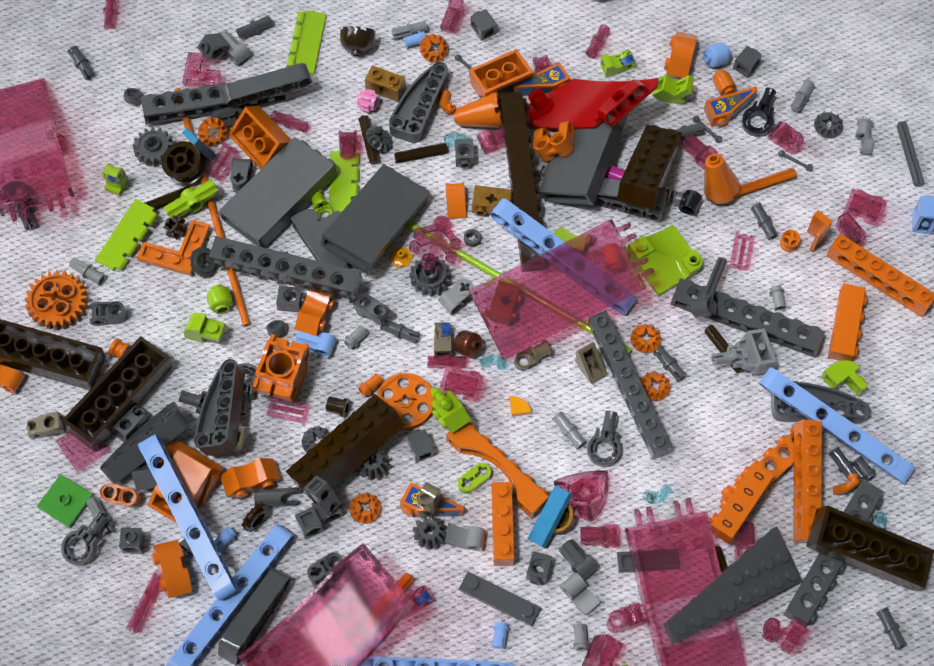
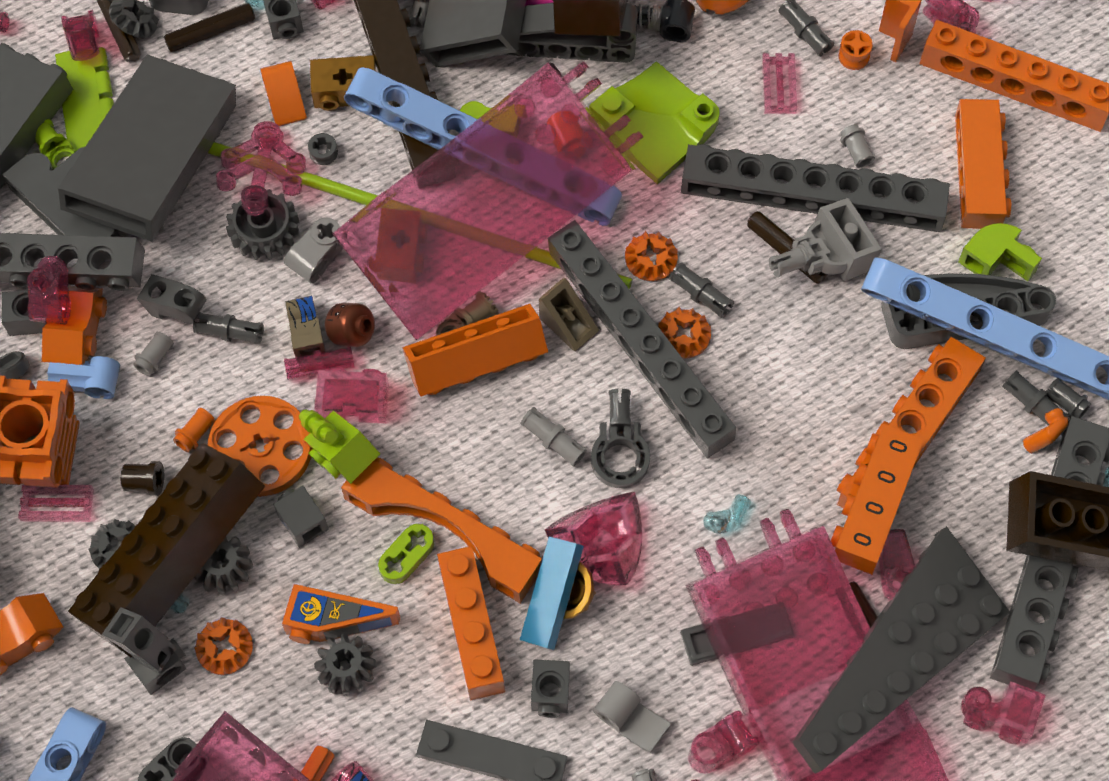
camera: 10 degrees left, 0 degrees up
(255, 517) = (27, 704): dark brown gear -> none
(273, 497) = (55, 662): dark grey piece -> none
(306, 292) = (49, 292): none -> clear pink piece
(309, 522) = (126, 693): dark grey brick -> none
(401, 257) = (207, 205): light orange plant -> none
(429, 497) = (332, 604): dark tan leg -> none
(469, 538) = (415, 662): light grey panel -> none
(493, 359) = (393, 345): clear light blue arm -> none
(519, 406) = (459, 414): light orange tile -> none
(535, 372) = (475, 350): none -> orange brick
(579, 561) = (620, 661): dark grey piece -> none
(606, 535) = (653, 606): clear pink piece -> none
(705, 303) = (740, 175): dark grey axle -> none
(806, 476) = (978, 432): orange brick -> none

